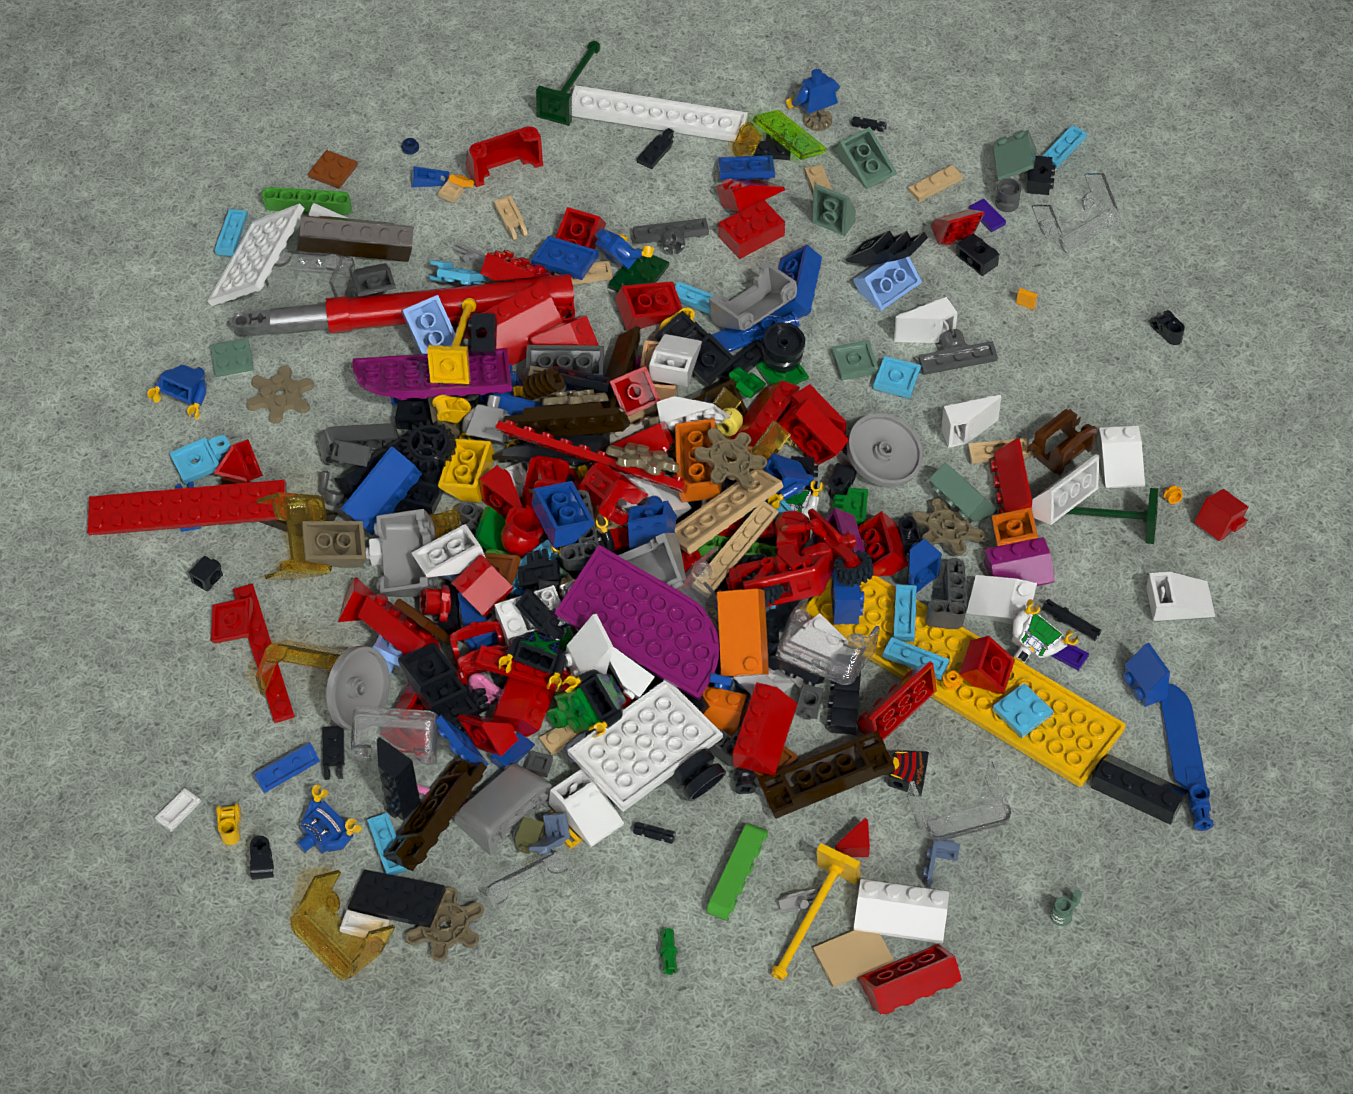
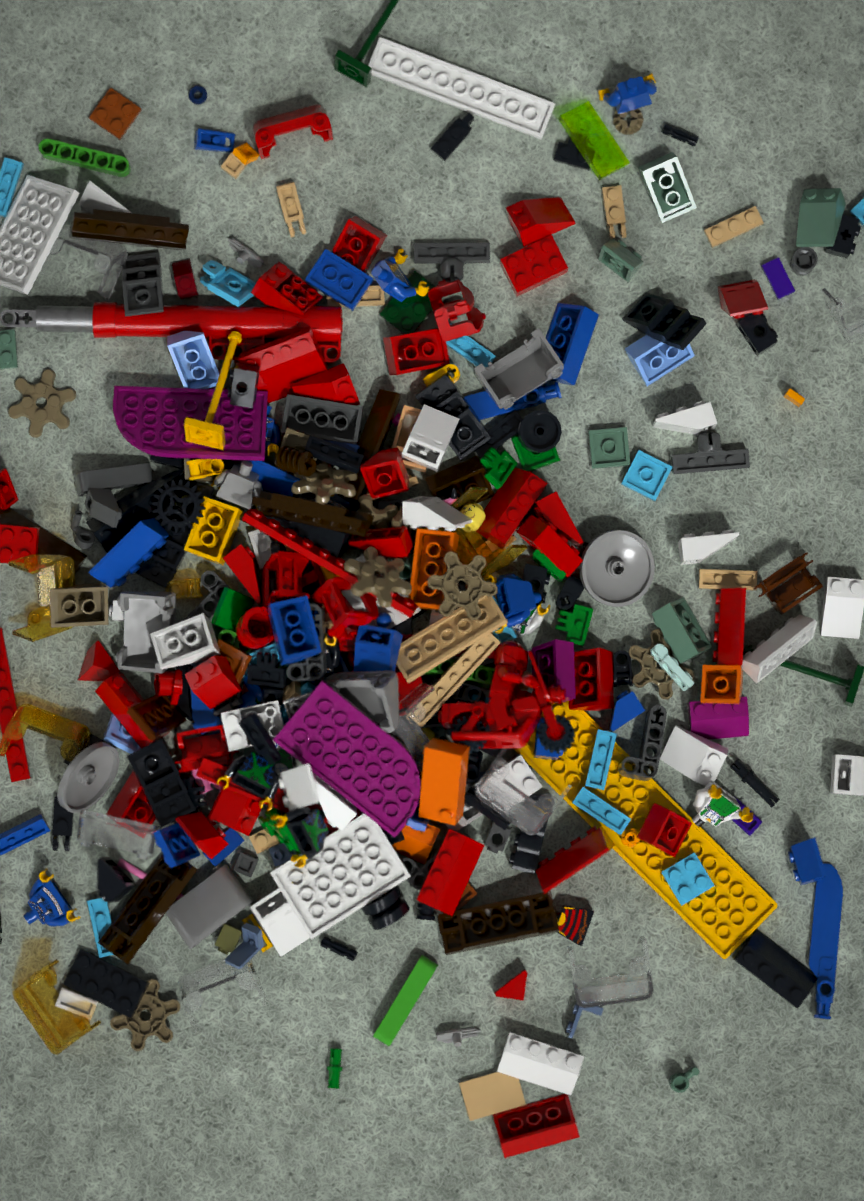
camera: 10 degrees right, 30 degrees up
(414, 279) = (184, 279): none -> dark red slope
(668, 266) = (453, 309): none -> red animal
(746, 140) = (549, 144): clear yellow piece -> none
(746, 167) = (541, 181): blue plate -> none
(812, 448) = (543, 561): none -> green tile
(837, 865) = (491, 1014): yellow tile -> none
(960, 522) = (671, 667): none -> light aqua hinge

